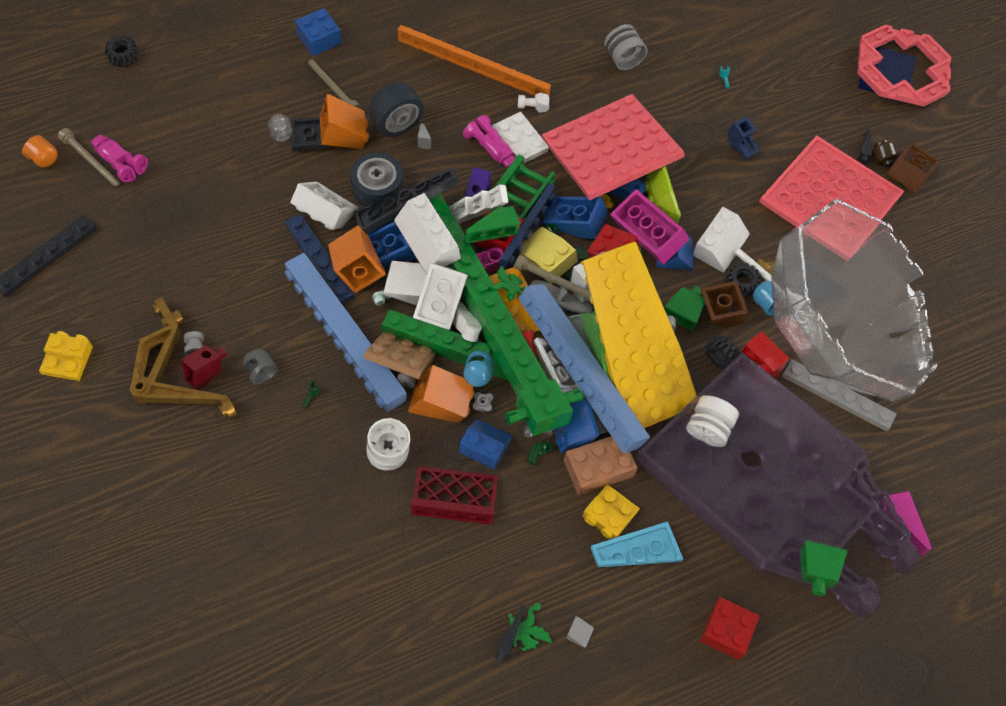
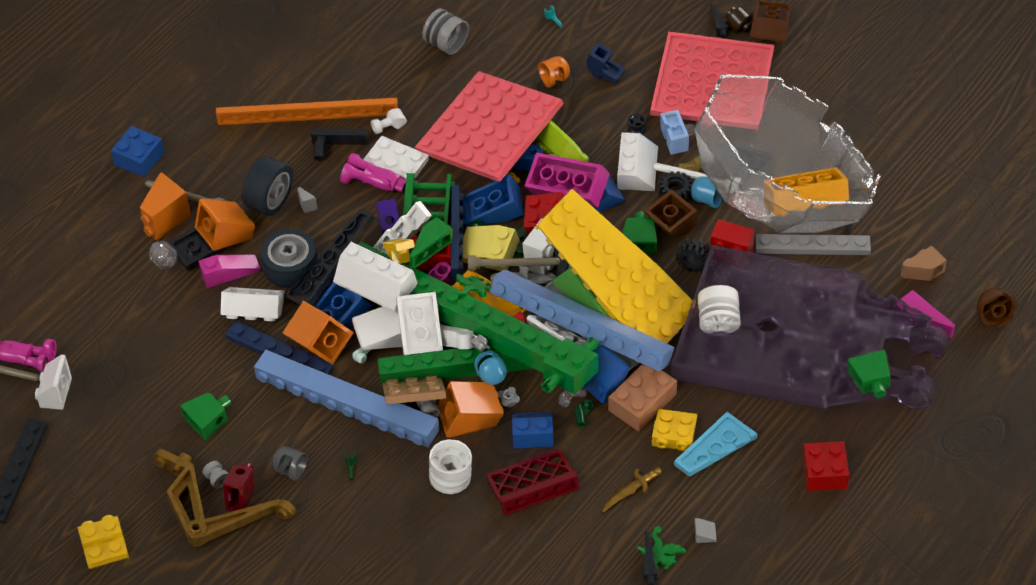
camera: 20 degrees left, 10 degrees down
(121, 196) = (54, 384): none -> white slope
(222, 284) = (206, 413): none -> green torso
(303, 88) = (164, 207): none -> orange slope
(320, 163) = (225, 268): none -> dark pink slope
(463, 219) = (399, 249): none -> yellow slope
(471, 89) = (321, 137): none -> black piece
(480, 340) = (479, 342): none -> light grey plate
(538, 549) = (632, 486): none -> pearl gold piece
(697, 122) = (553, 69): none -> orange helmet
(741, 205) = (636, 123): none -> black wheel
(771, 228) = (675, 131): none -> light blue piece
(866, 345) = (818, 185): none -> light orange brick
(933, 470) = (924, 265): none -> medium nougat slope
(982, 549) = (996, 307): none -> reddish brown cylinder

